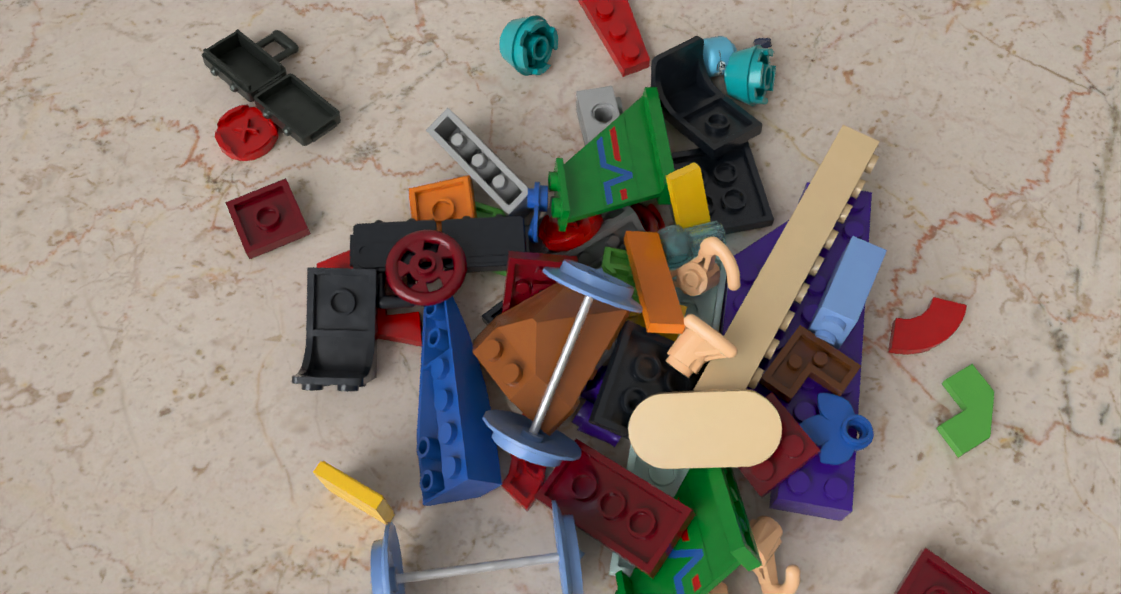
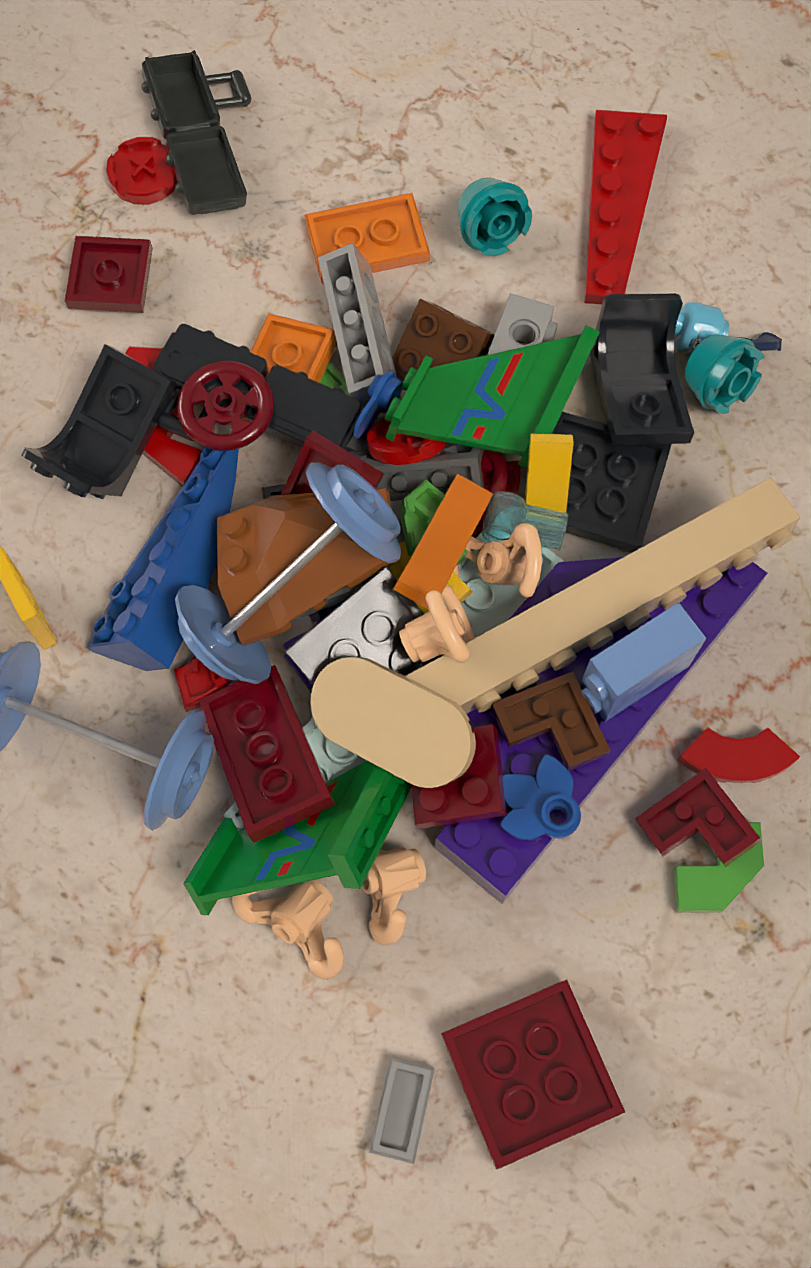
camera: 30 degrees right, 5 degrees up
(451, 88) = (382, 230): none -> orange tile
(539, 148) = (440, 336): none -> reddish brown bracket
(935, 374) = (702, 808): none -> dark red plate

